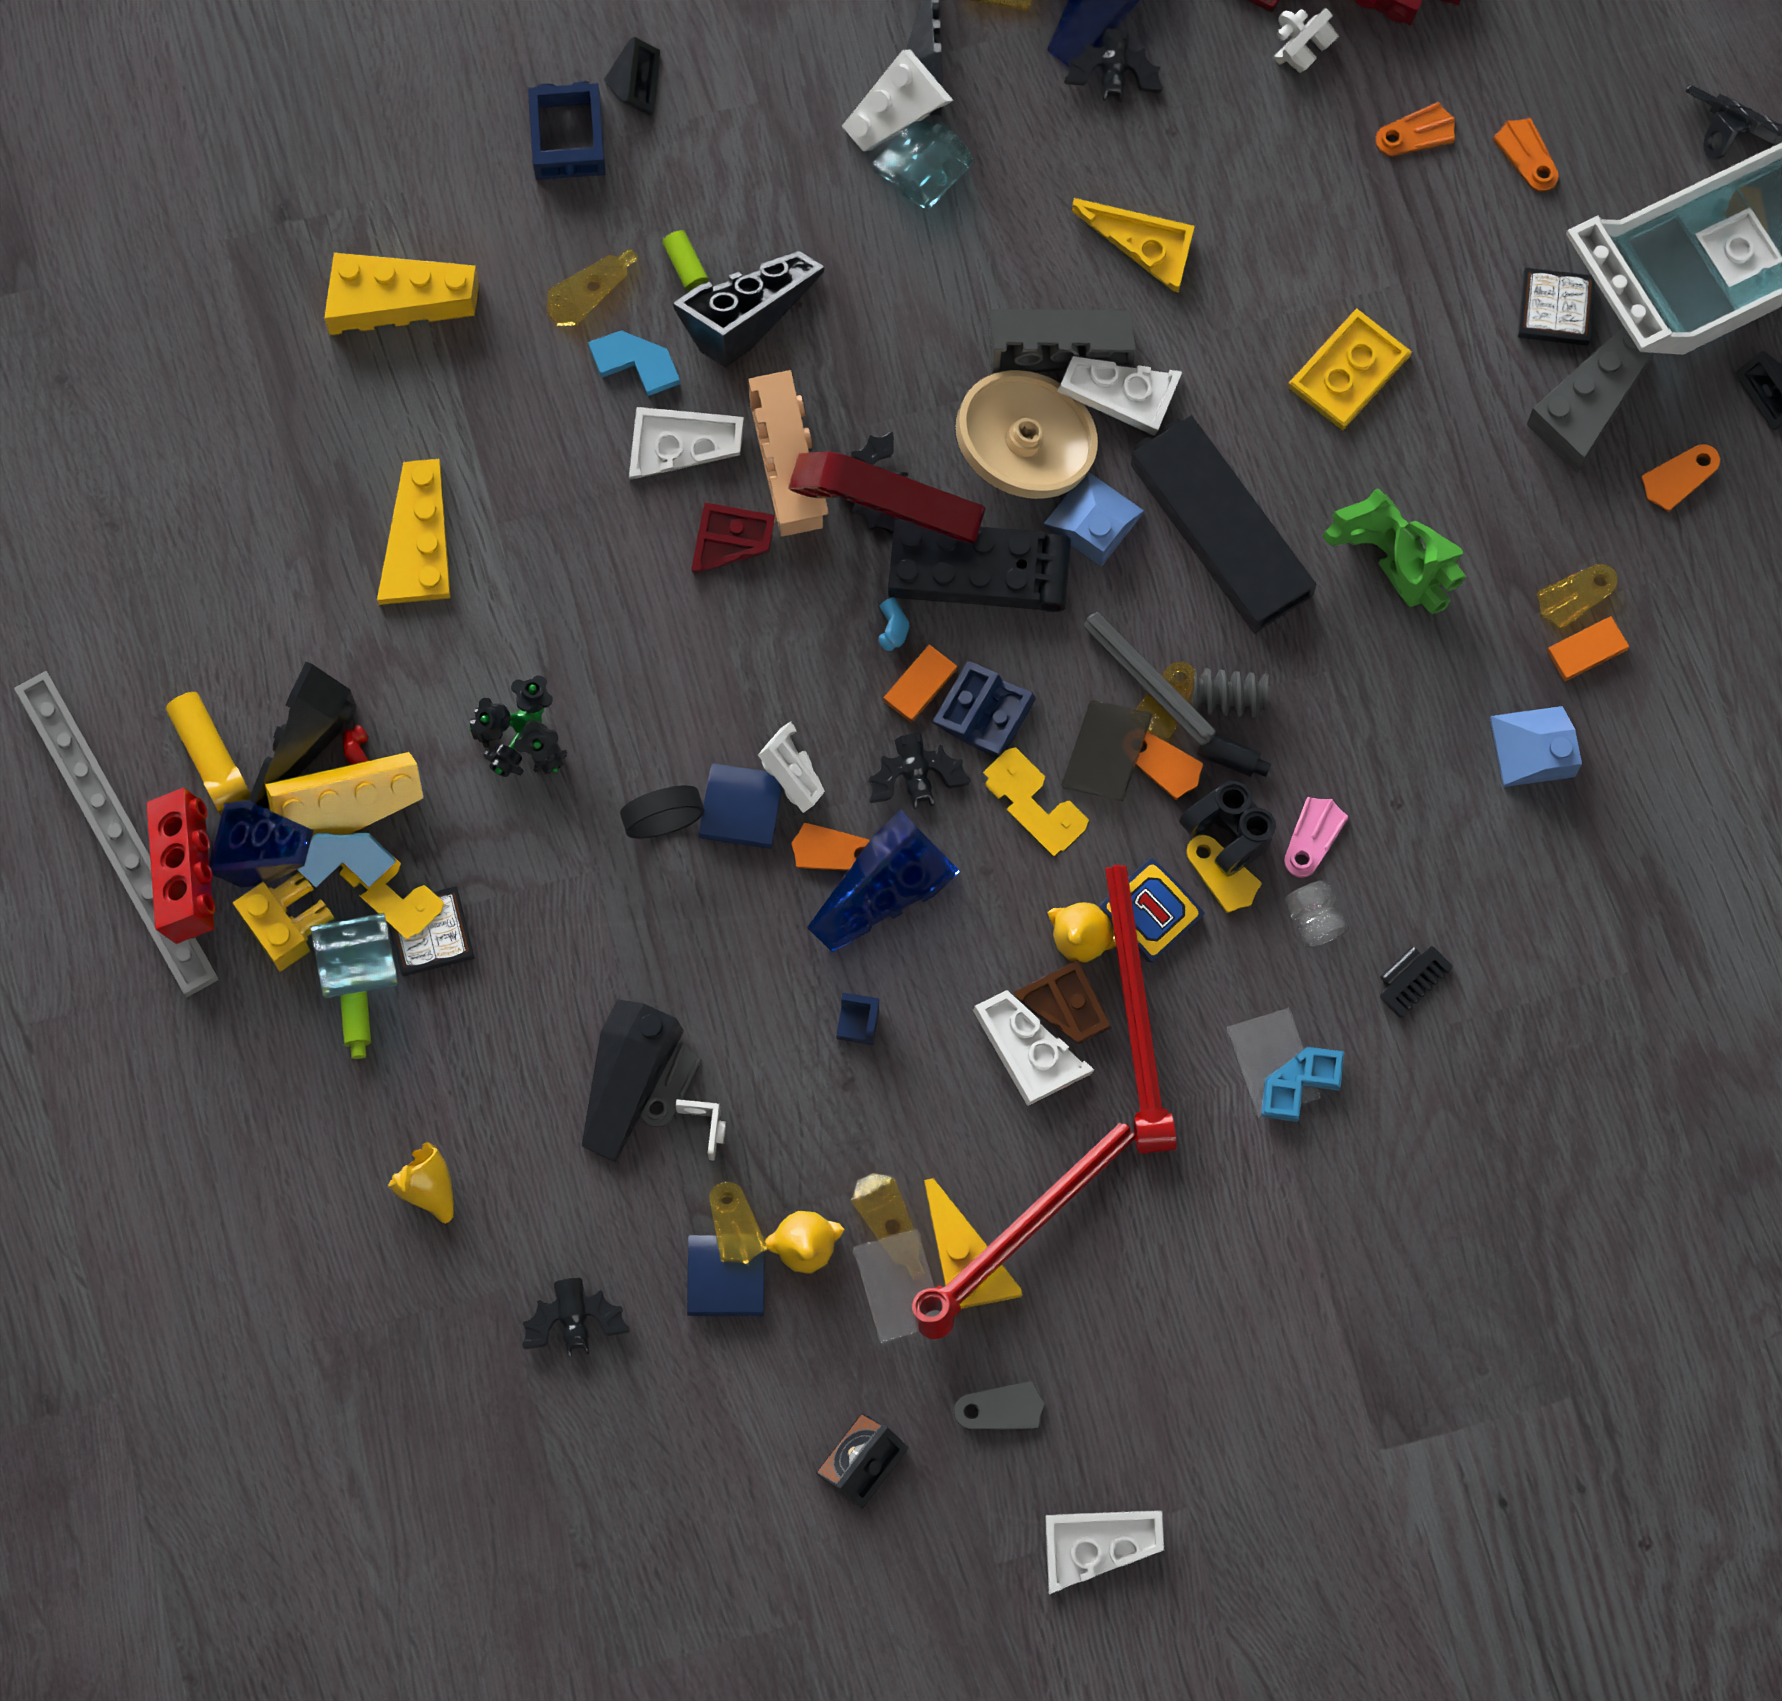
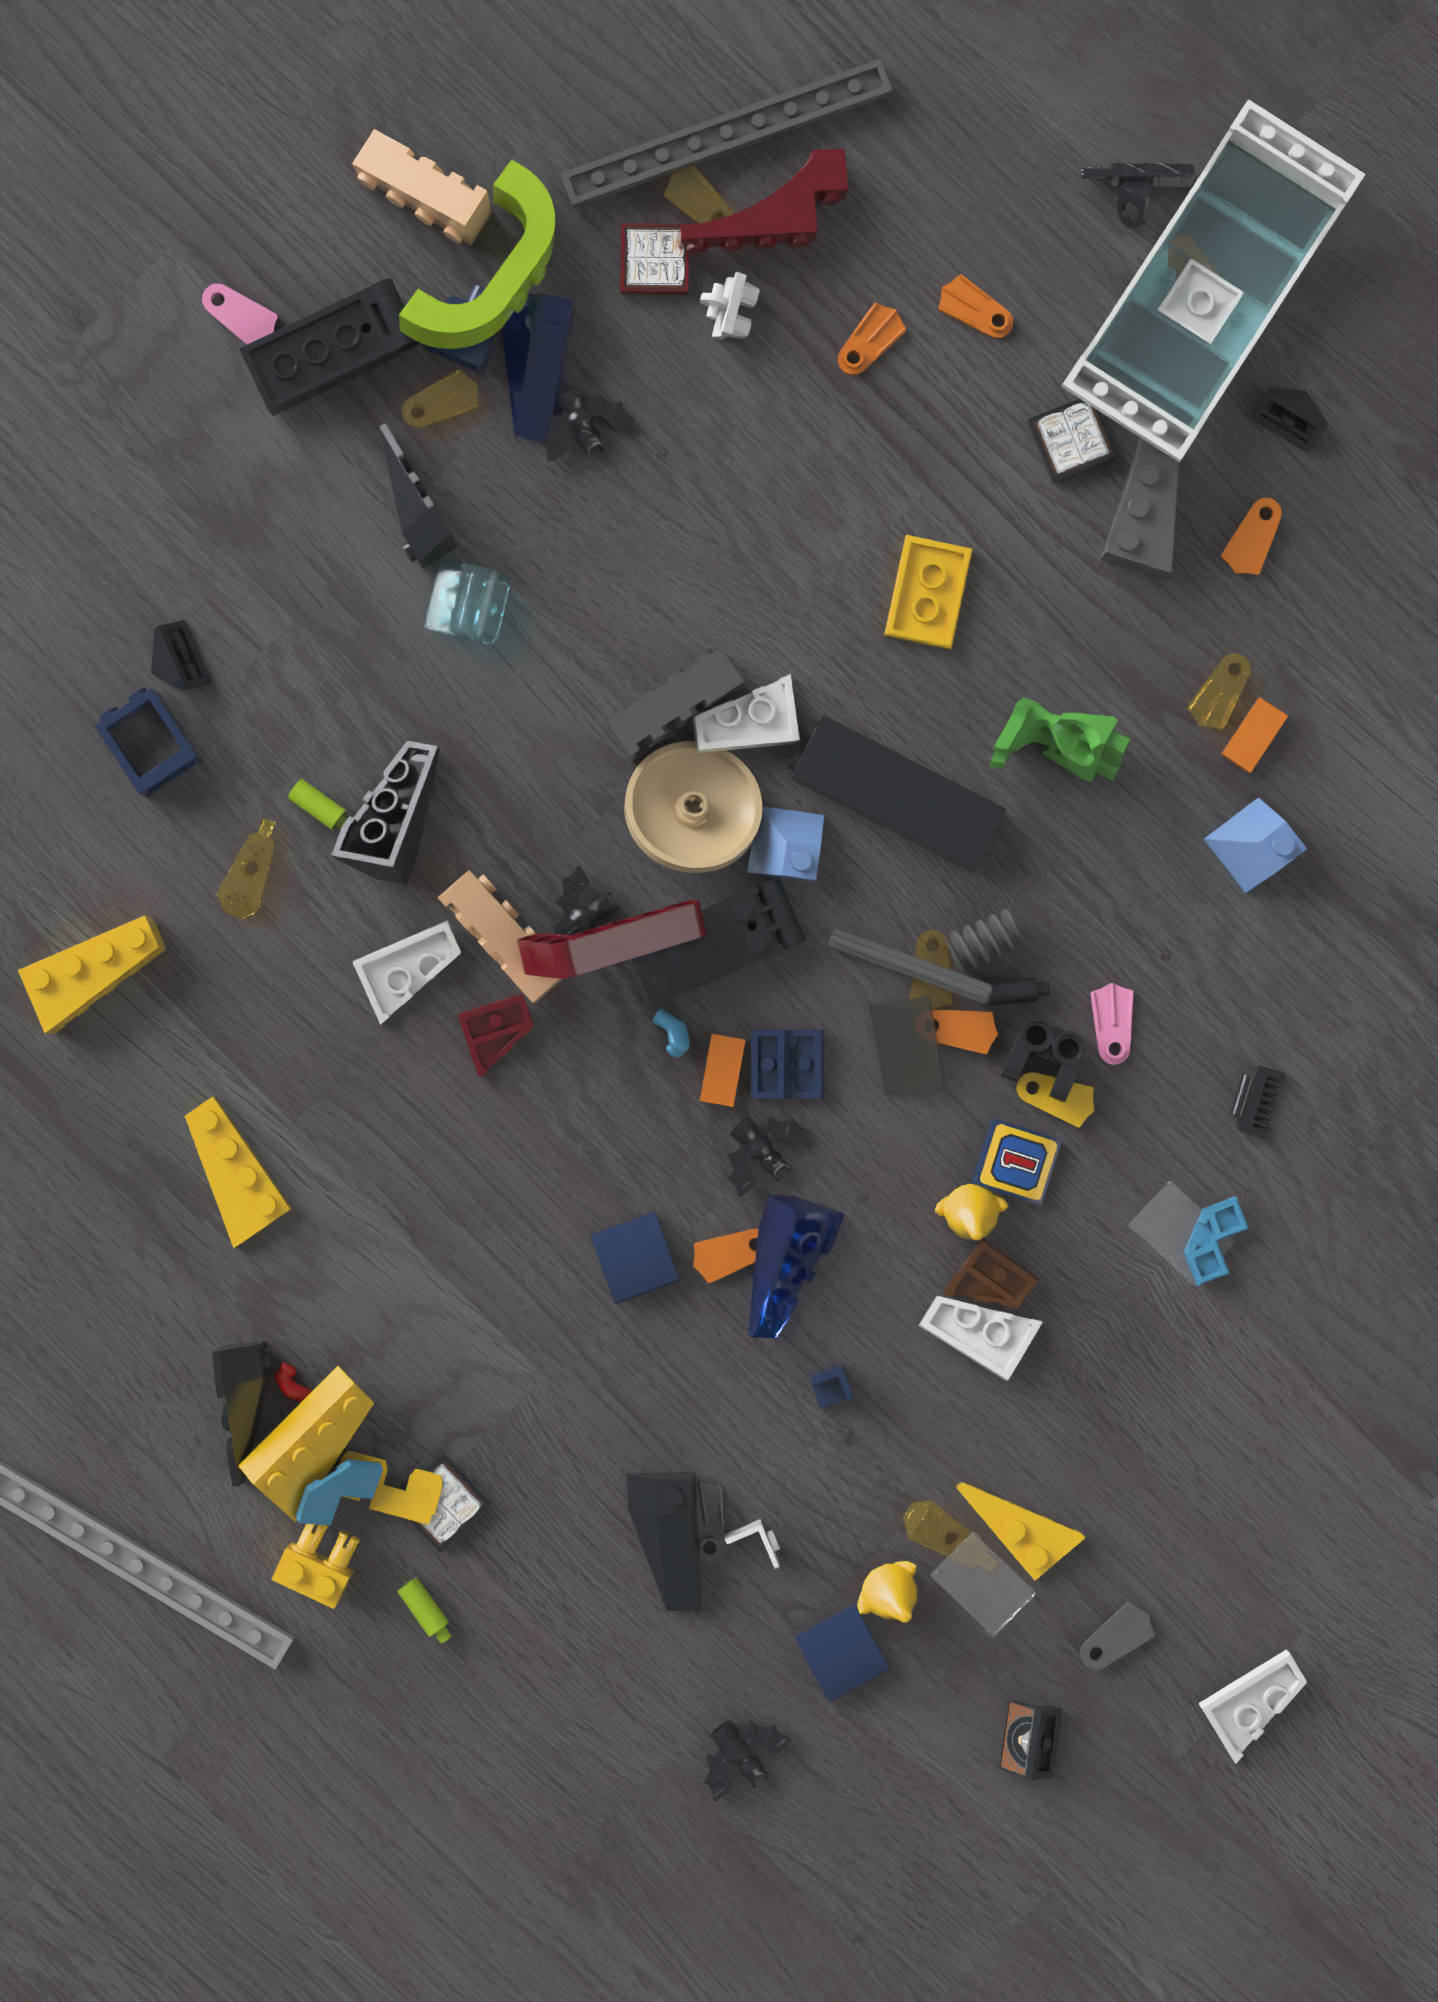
camera: 25 degrees left, 15 degrees up
(180, 865) = (209, 1572): red brick -> none
(207, 750) = (199, 1473): yellow piece -> none
(257, 845) = (264, 1526): clear blue wedge -> none
(354, 955) = (396, 1566): clear light blue brick -> none
(426, 1183) = (560, 1714): yellow hat -> none
(530, 735) = (440, 1308): black plant -> none
(625, 350) = (312, 912): dark azure tile -> none
(644, 818) = (577, 1307): black tyre -> none
(735, 1225) = (827, 1611): clear yellow piece -> none
(791, 769) = (659, 1206): white wing -> none
(897, 100) = (418, 567): white wing -> none
(949, 1298) = (1058, 1491): red piece -> none
(1020, 788) = (849, 1109): yellow piece -> none
(1150, 241) = (699, 569): yellow wing -> none
(1153, 1124) = (1114, 1340): red piece -> none
(1316, 914) = (1155, 1094): clear wheel -> none

